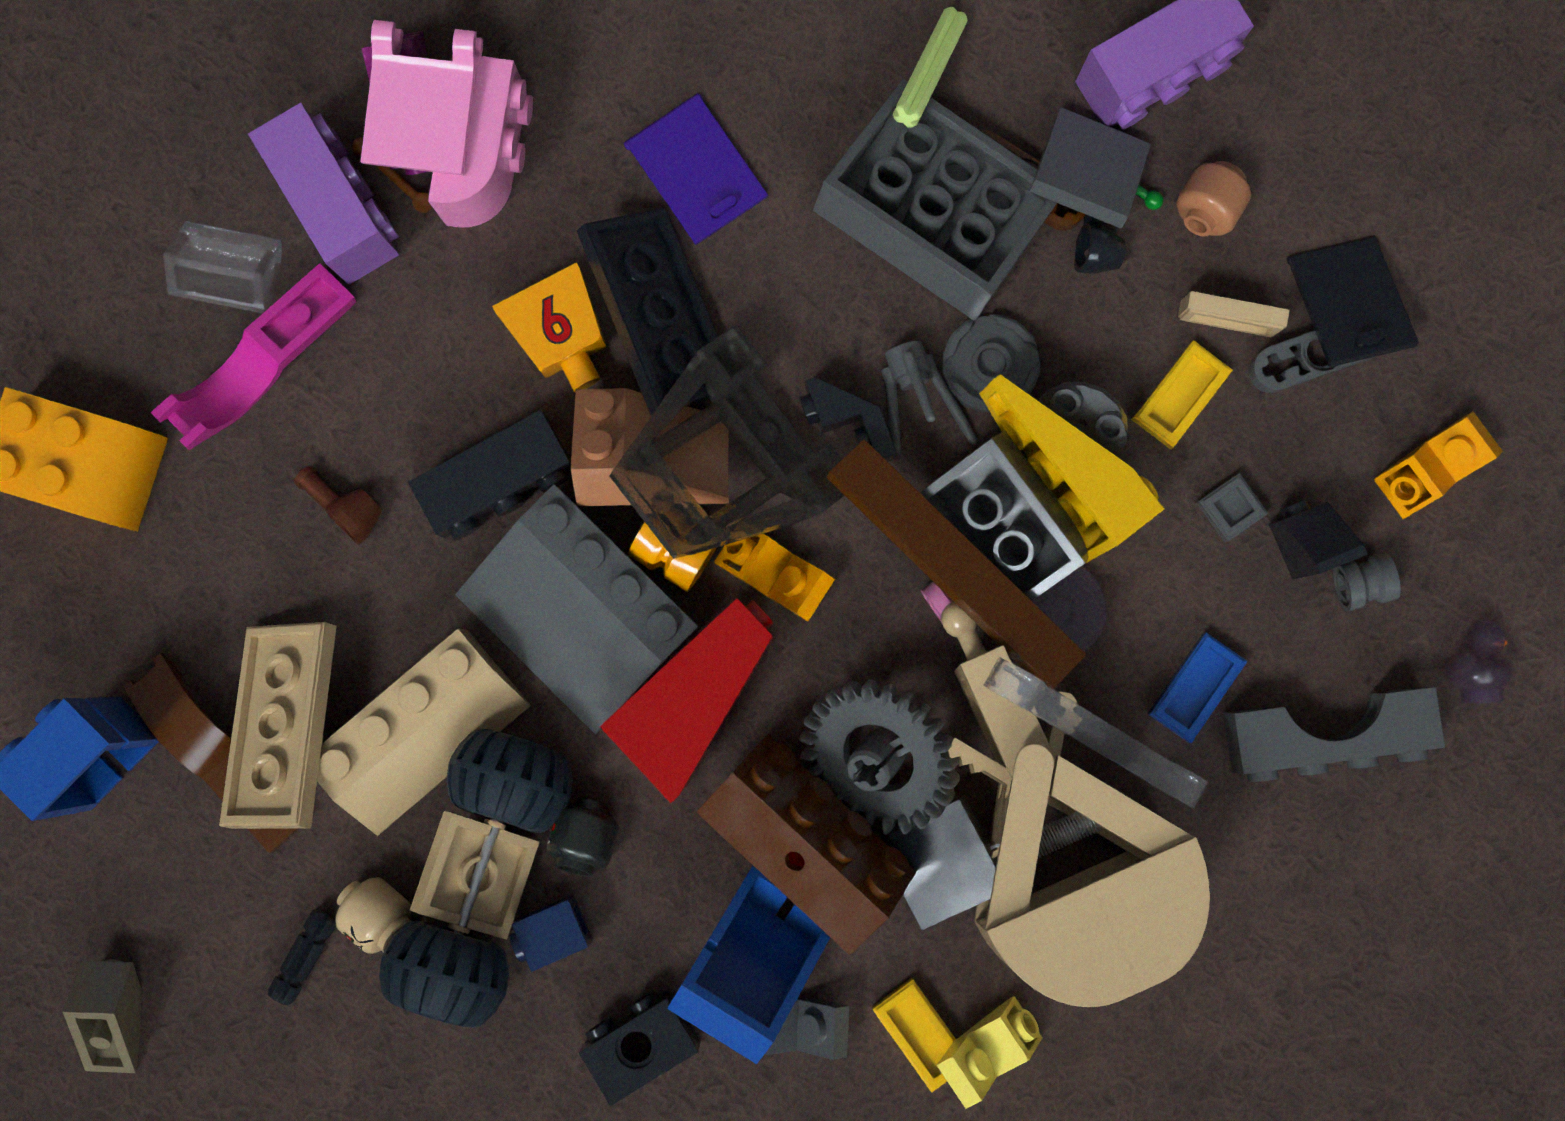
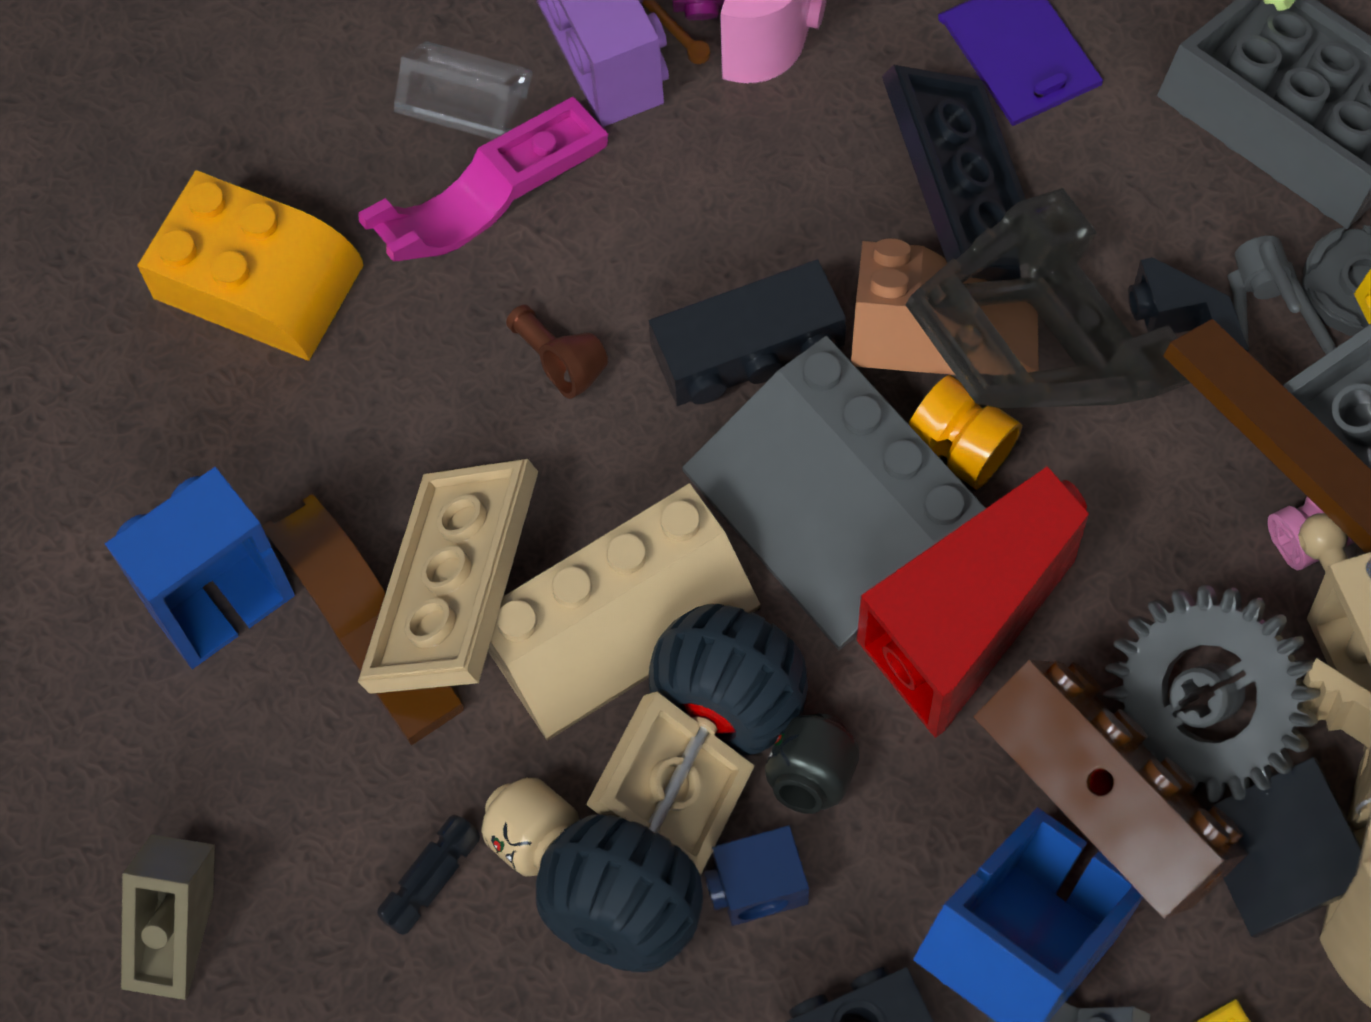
camera: 10 degrees right, 20 degrees down
(556, 326) = (840, 181): light orange torso -> none
(776, 573) = (1112, 492): light orange slope -> none

